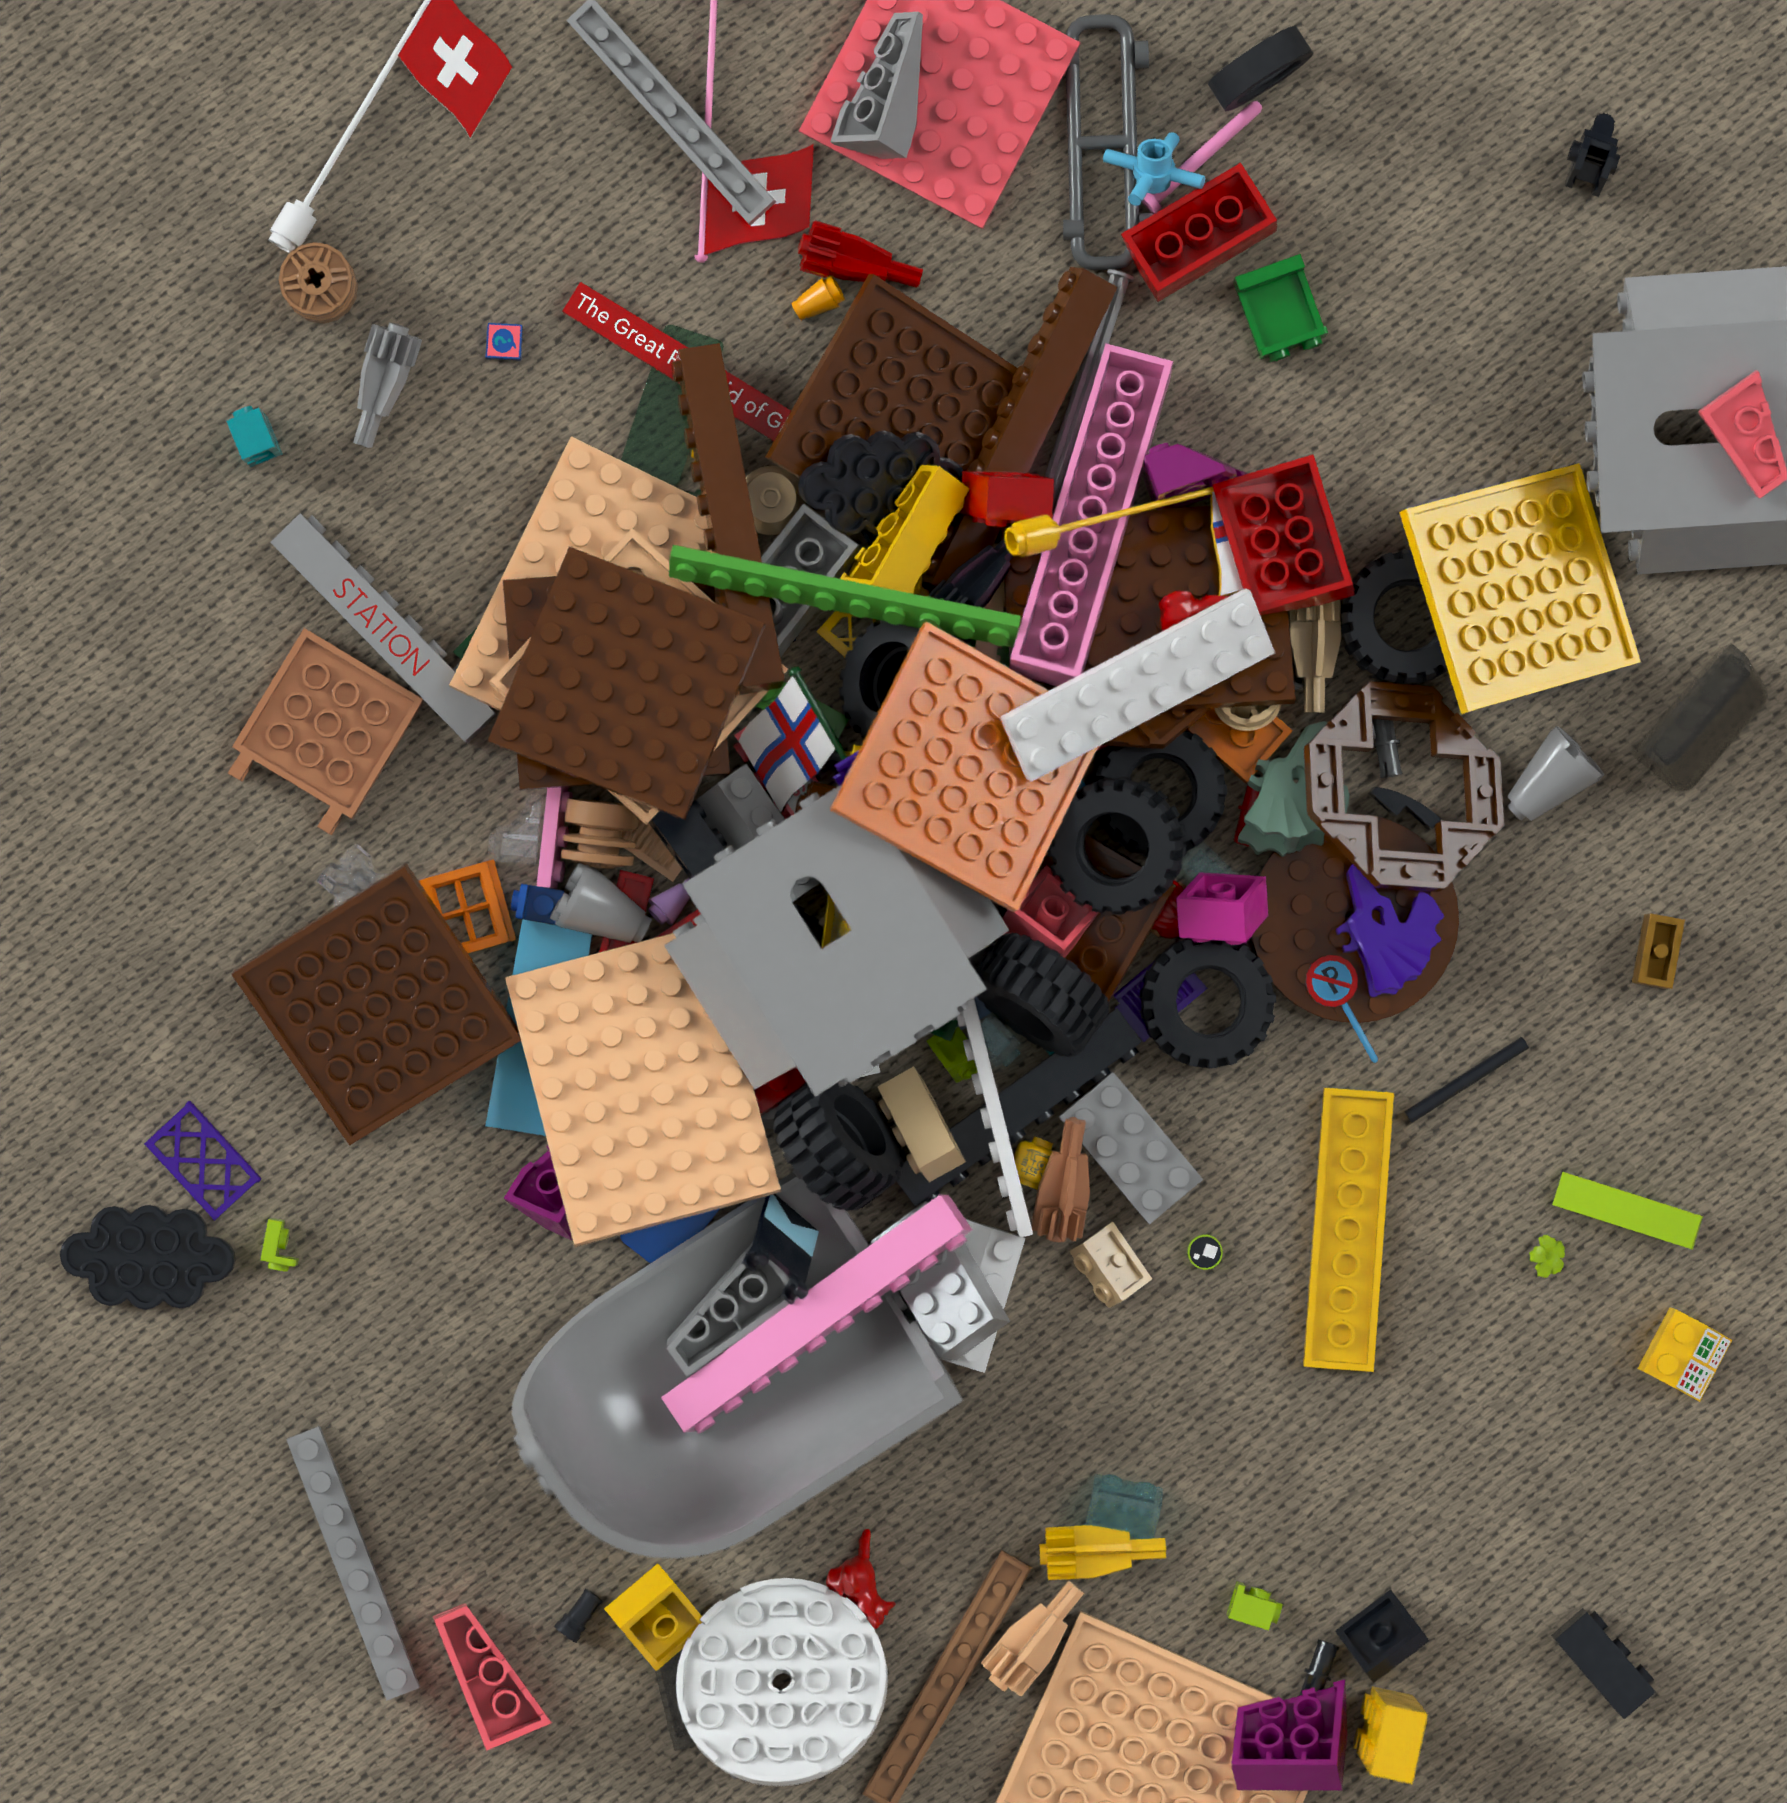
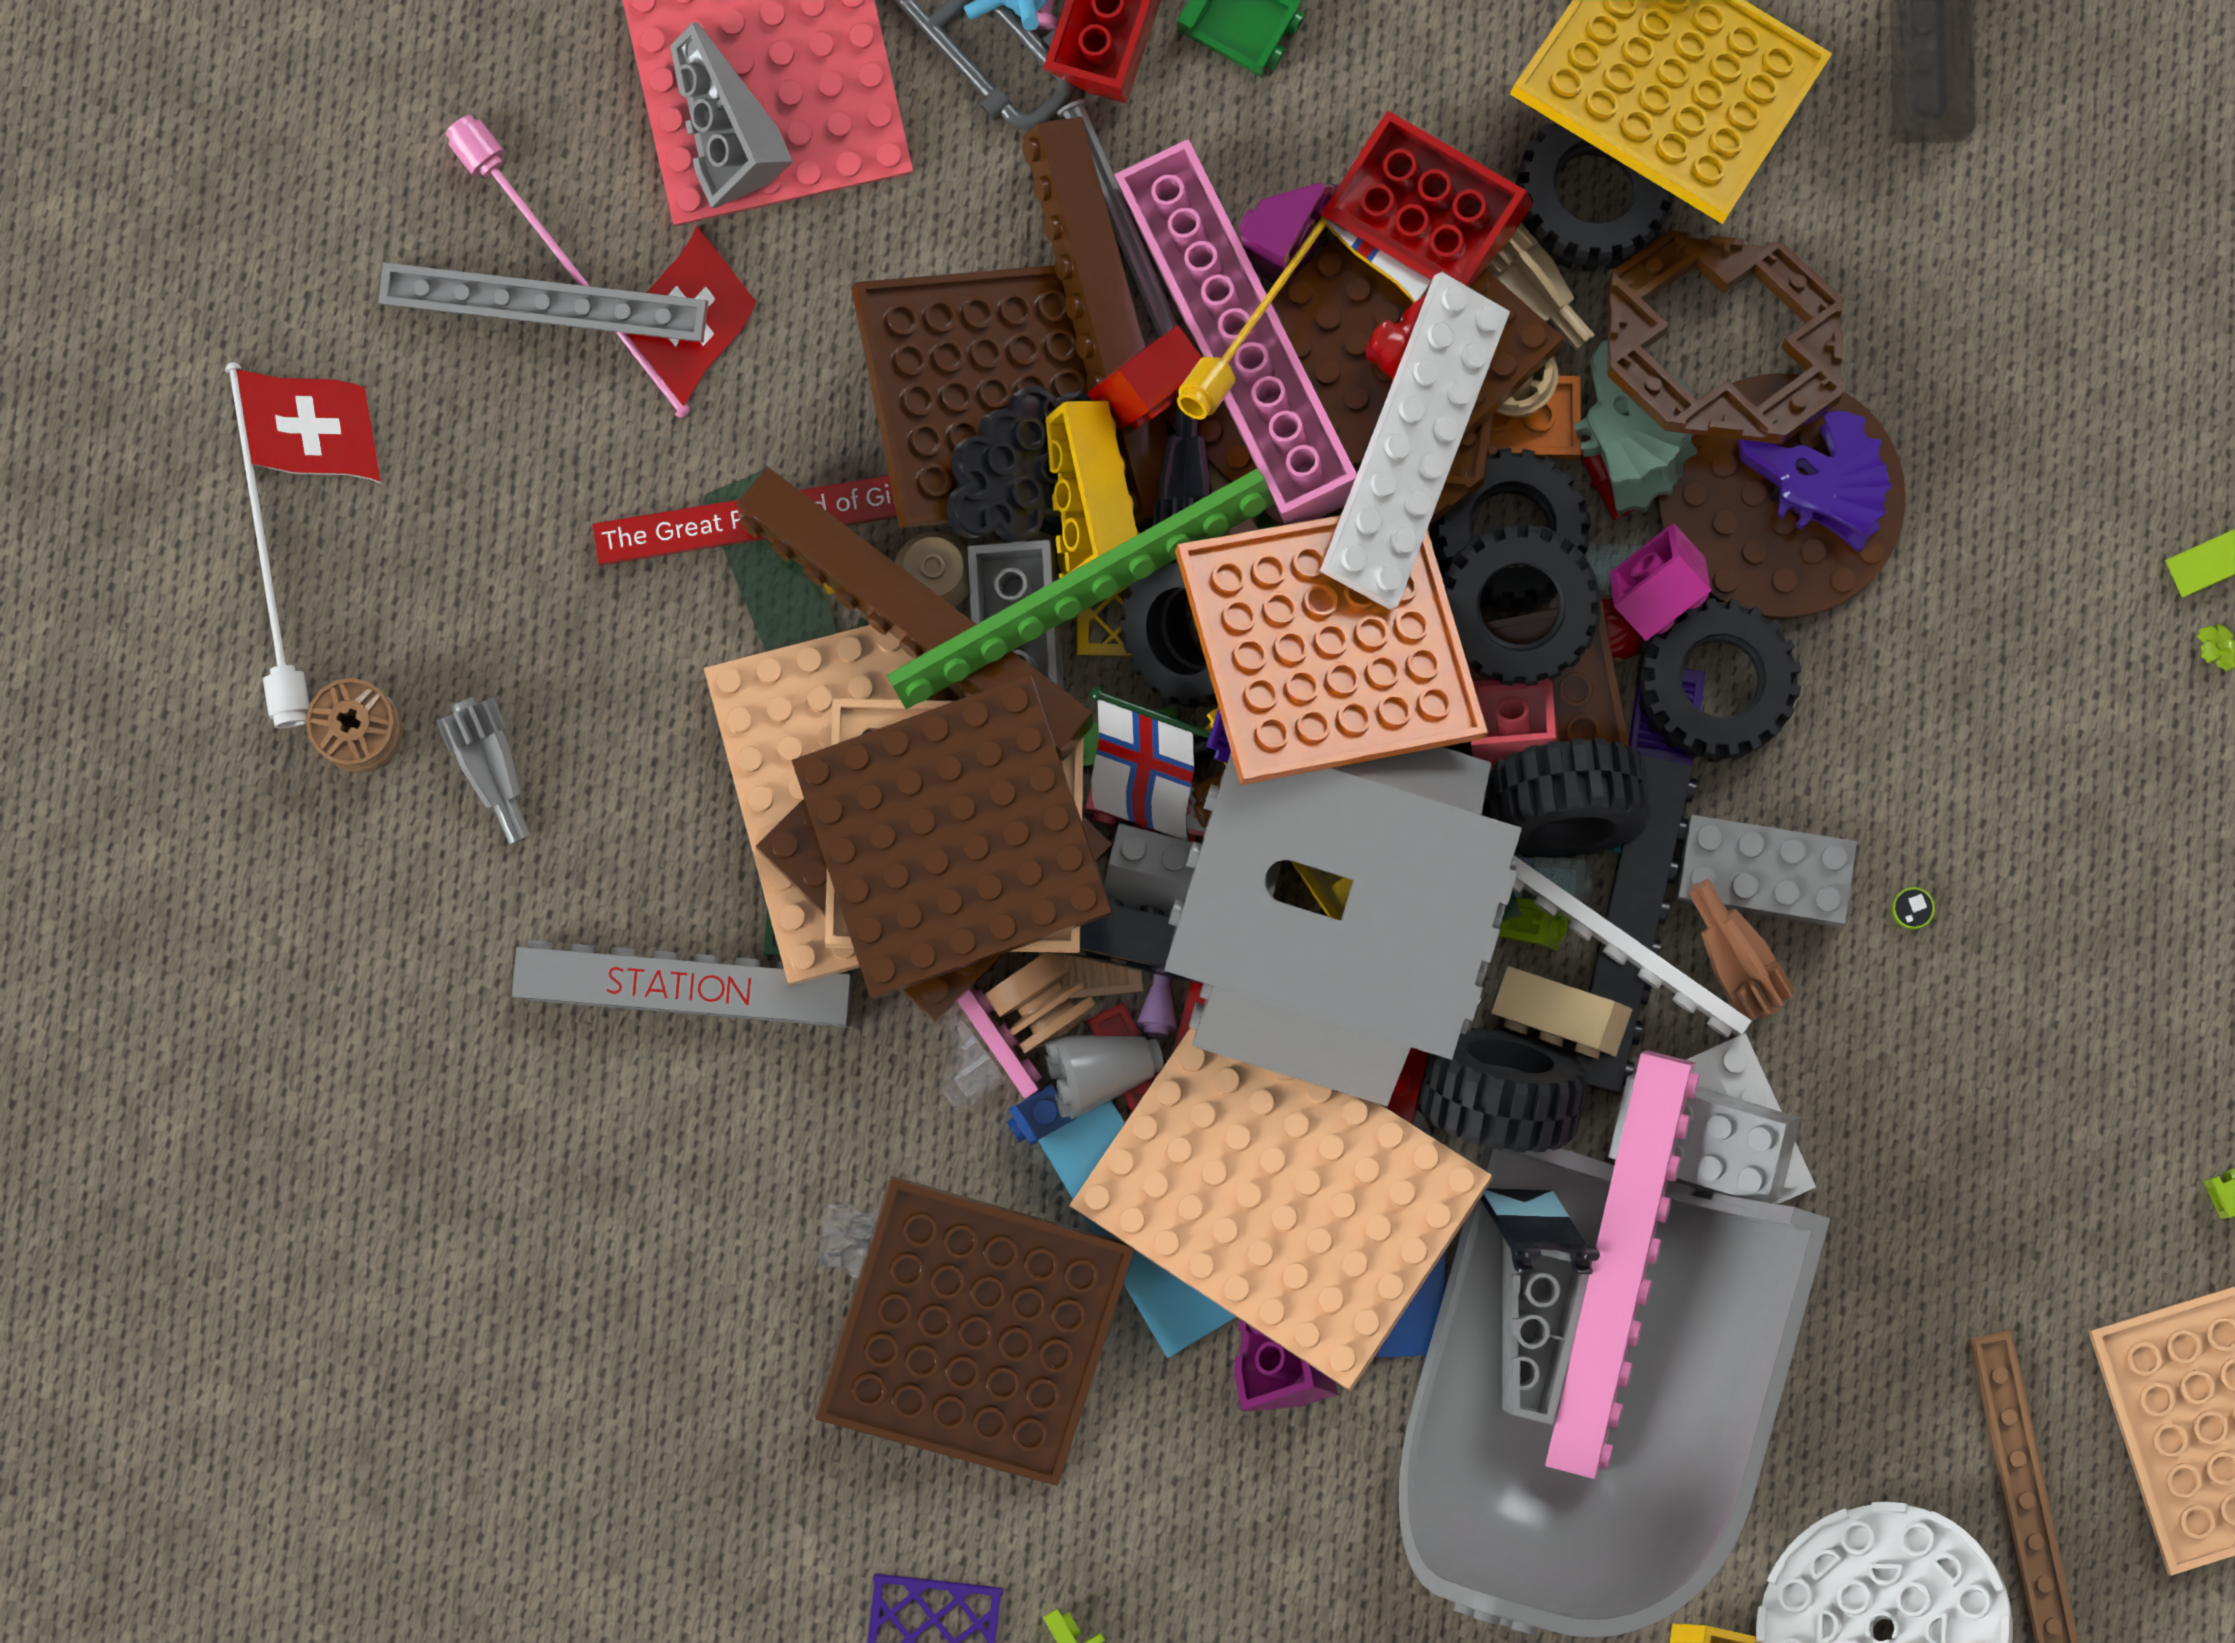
camera: 40 degrees left, 5 degrees down
(253, 436) = (414, 913): teal brick -> none
(326, 726) = (706, 1121): nougat plate -> none
(494, 902) = (997, 1148): orange piece -> none
(504, 341) = (569, 637): tile -> none
(819, 298) = (820, 357): light orange cone -> none
(850, 257) = (816, 295): red piece -> none
(858, 1583) = (1867, 1480): red animal -> none
(1030, 1642) = (2072, 1397): light nougat piece -> none
(1032, 1160) = (1690, 956): yellow head -> none
(1094, 1551) = (2055, 1265): yellow piece -> none
(1110, 1265) = (1840, 994): tan bracket -> none
(1125, 1506) = (2046, 1201): clear light blue bracket -> none
(1333, 983) = (1816, 566): piece -> none
(1348, 1229) = (2023, 777): yellow plate -> none
(1387, 748) = (1679, 321): dark grey axle -> none
(1395, 802) = (1727, 360): black slope -> none
(1466, 1079) = (2007, 553): black bar -> none
(1553, 776) = (1846, 218): light grey cone -> none
(1658, 951) = (2075, 291): pearl gold brick -> none

